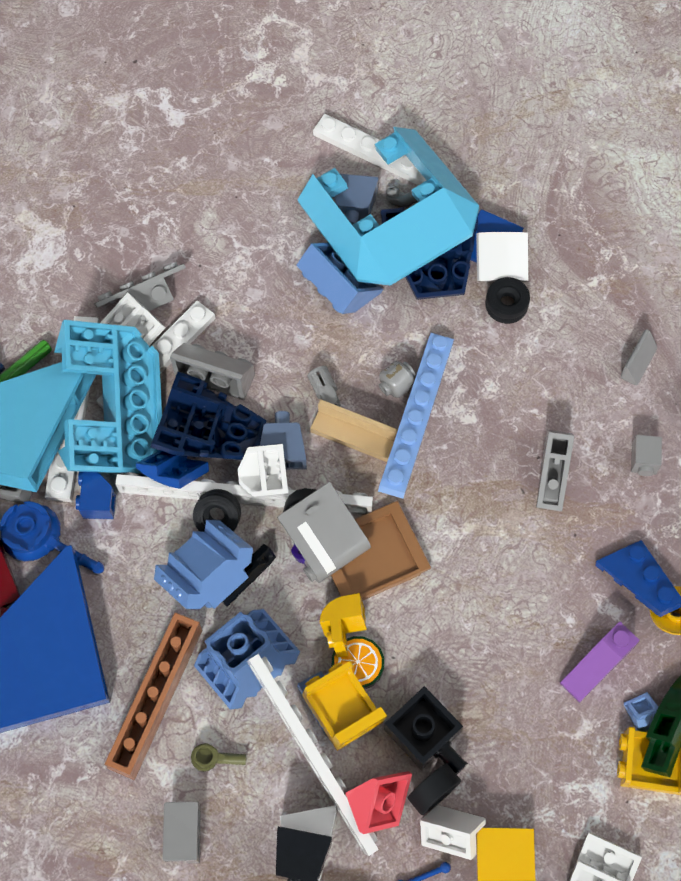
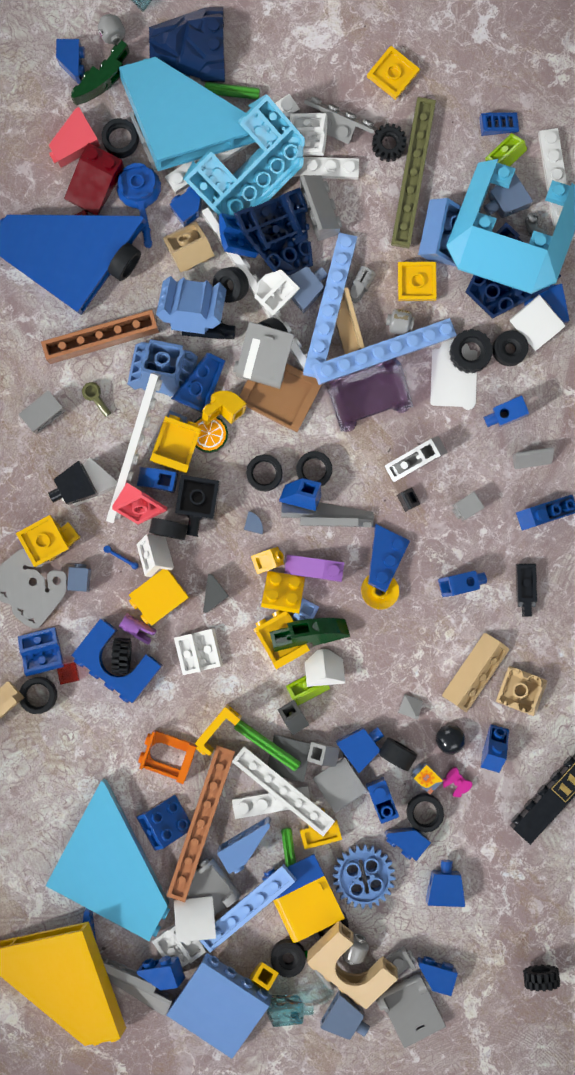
camera: 50 degrees right, 20 degrees up
(97, 604) = (124, 261): none -> black tyre
(139, 527) = (188, 247): none -> tan slope
(142, 211) = (393, 72): none -> yellow plate
(206, 274) = (389, 131): none -> black tyre
(256, 263) = (413, 172): none -> olive plate
(272, 172) = (492, 116): none -> blue slope
(297, 629) = (201, 383): none -> blue wing
(305, 164) = (508, 150): none -> lime slope
(323, 432) = (330, 302): none -> light blue plate
(365, 758) = (157, 479): none -> blue slope
(367, 336) = (417, 281): none -> yellow plate
(448, 462) = (368, 393): none -> clear purple windscreen
(449, 615) = (264, 458): none -> black tyre
(487, 320) = (478, 338): none -> black tyre
(491, 561) = (315, 455): none -> black tyre
(492, 373) = (449, 384): none -> white sticker
(497, 691) = (253, 523): none -> sand blue tile
(505, 610) = (302, 493): none -> blue slope
(543, 609) = (329, 515): none -> light grey wedge
(548, 797) = (214, 594): none -> dark grey slope
(552, 707) = (268, 560): none -> yellow bracket
(575, 344) = (515, 408): none -> blue torso
(593, 510) = (408, 499): none -> black slope
(603, 716) = (283, 592): none -> yellow plate

